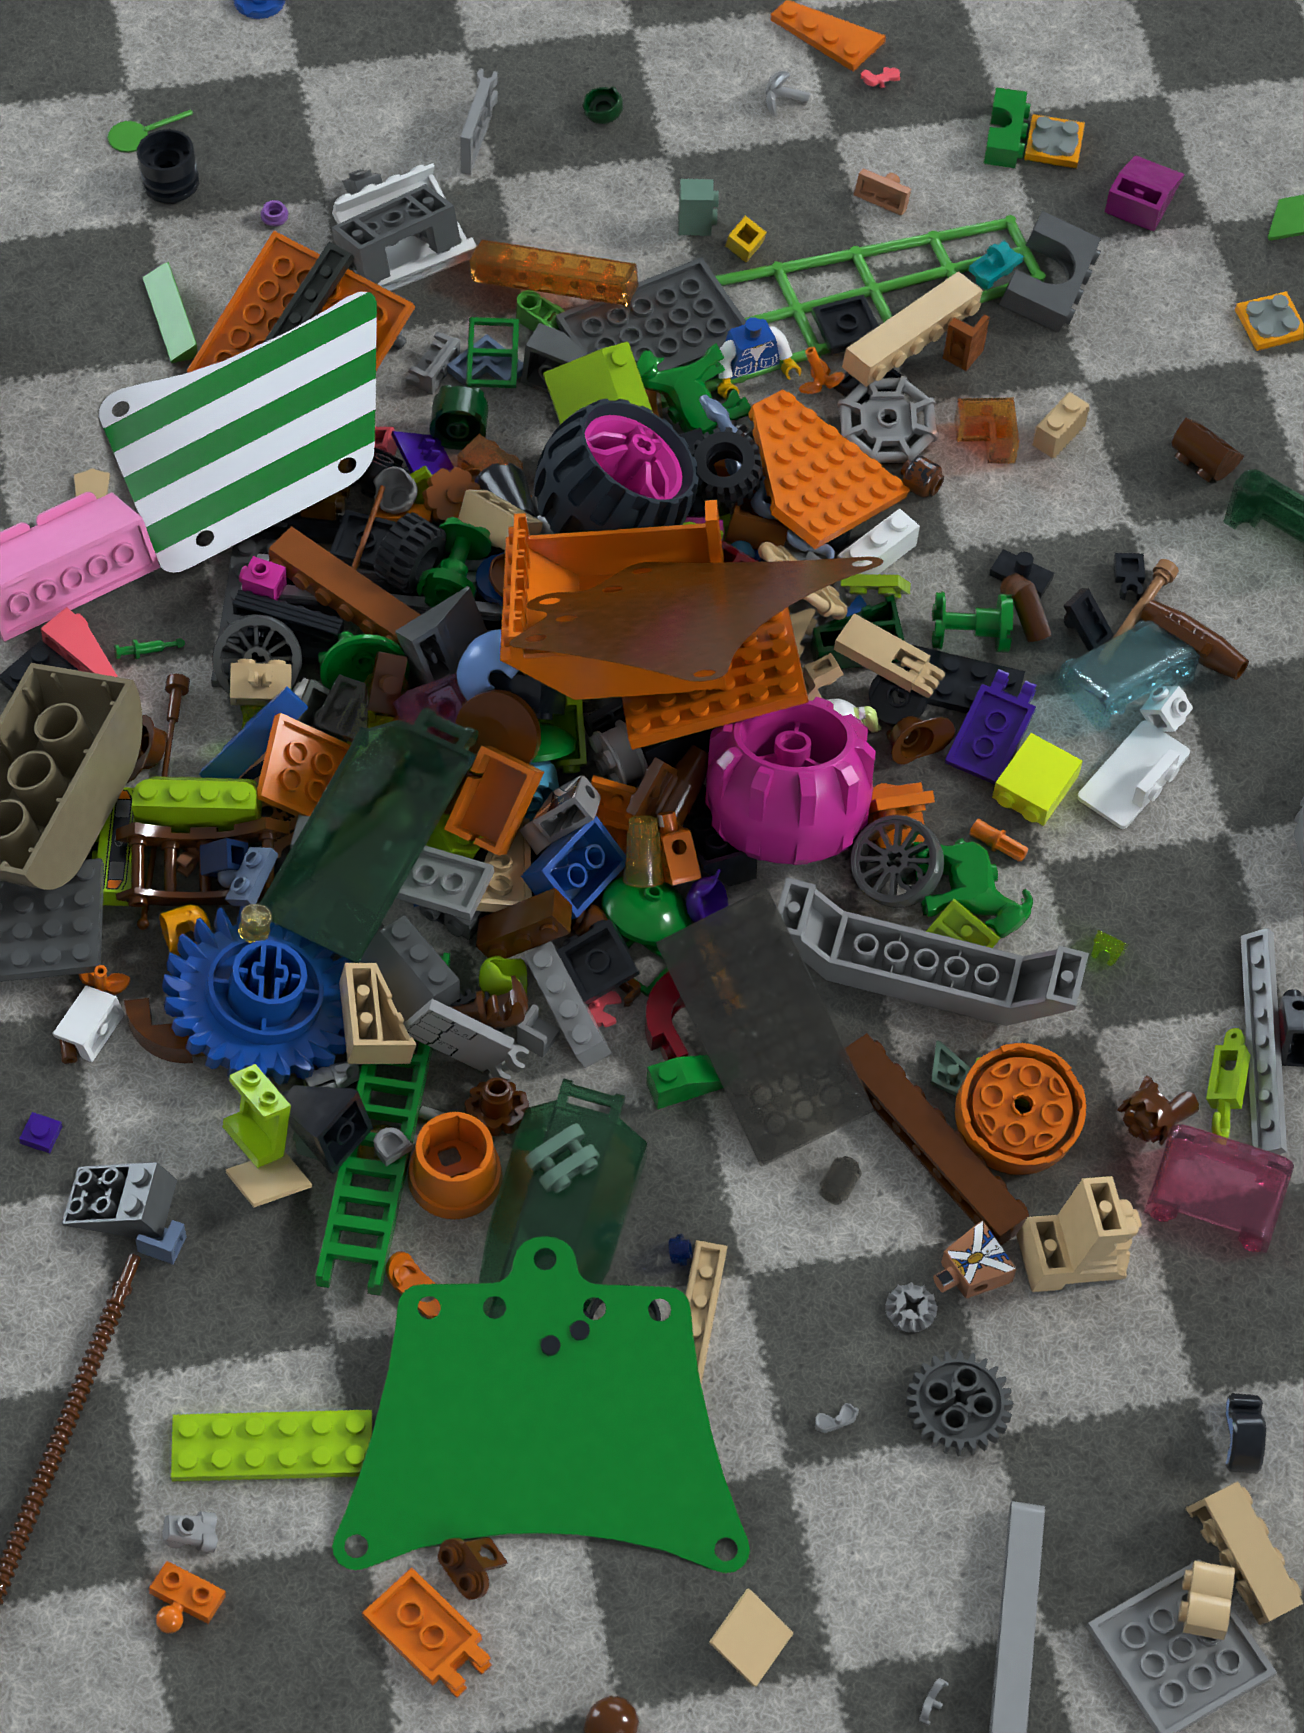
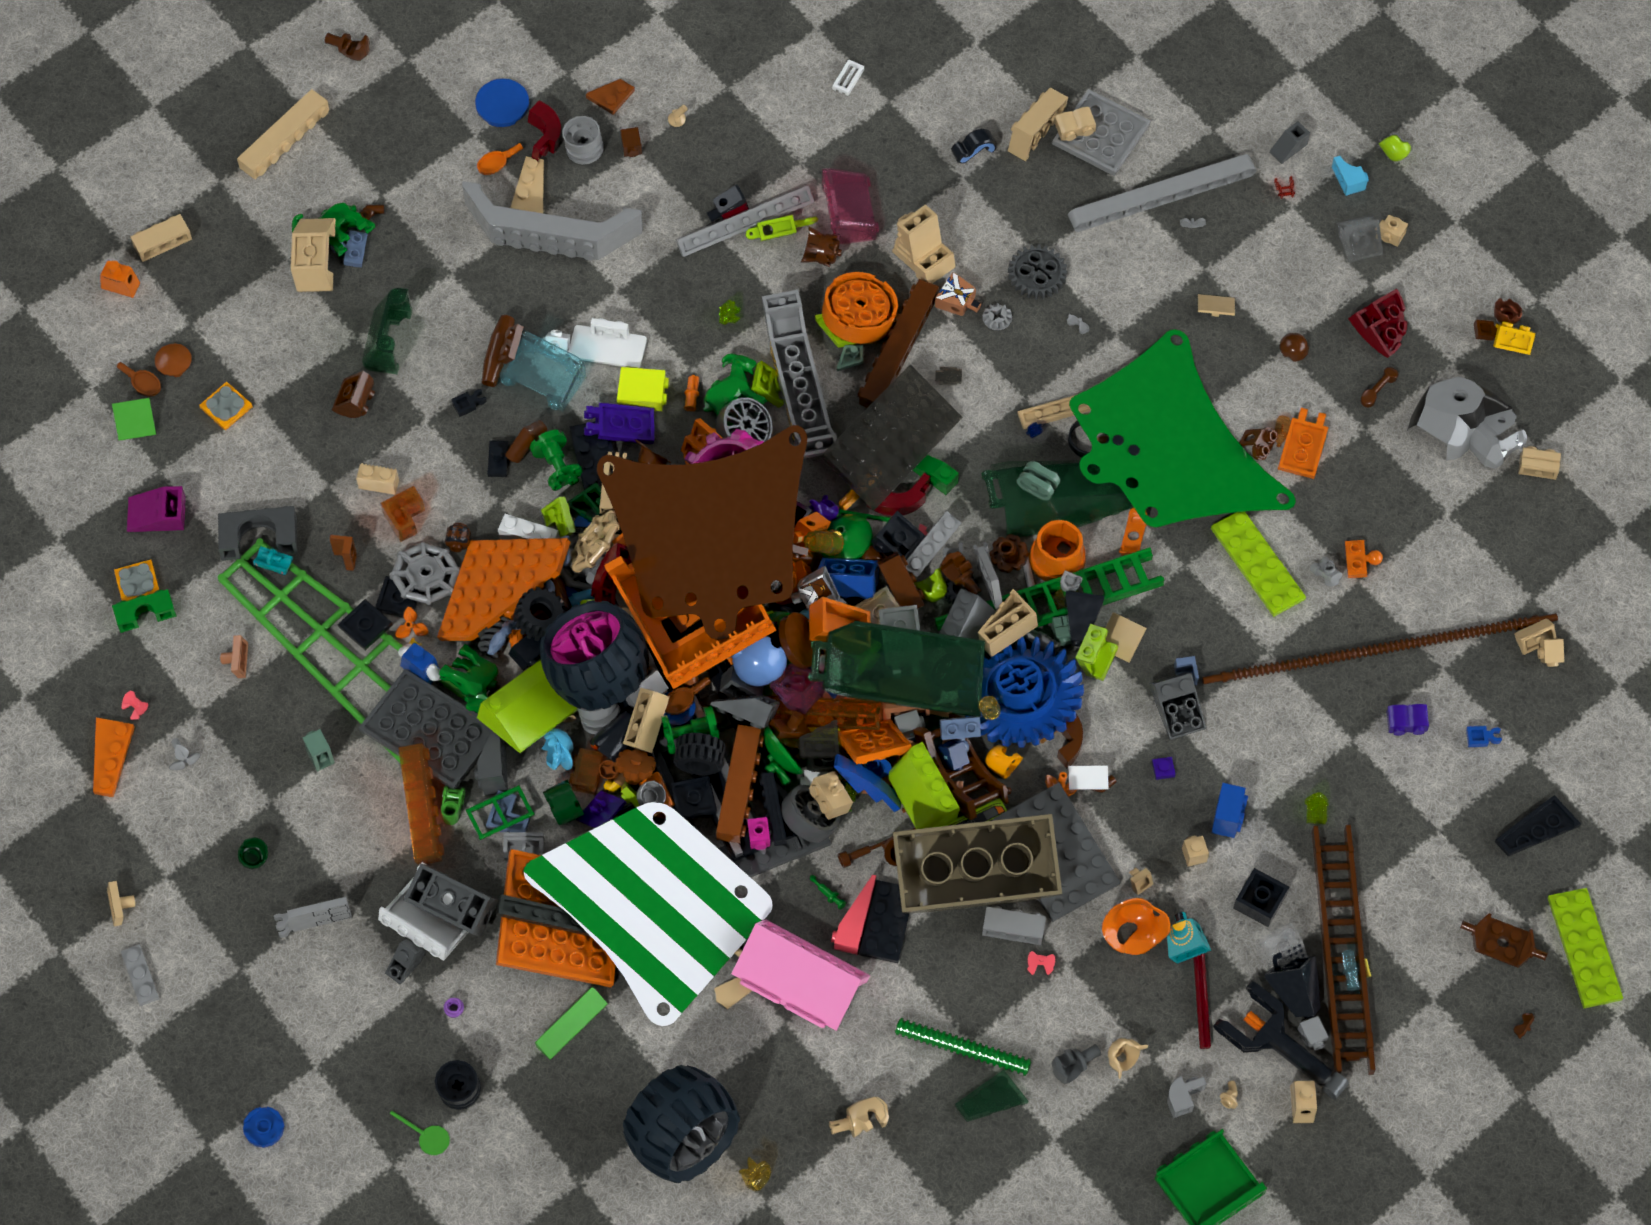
camera: 115 degrees left, 5 degrees up
(368, 527) = (690, 795): dark orange axle -> none
(475, 1613) = (1282, 427): none -> clear orange piece
(530, 440) = (559, 748): none -> medium azure hair
(745, 239) = (327, 712): yellow brick -> none
(911, 329) = (354, 581): tan brick -> none
(1087, 619) = (518, 406): black tile -> none
(1164, 573) = (457, 386): medium nougat piece -> none

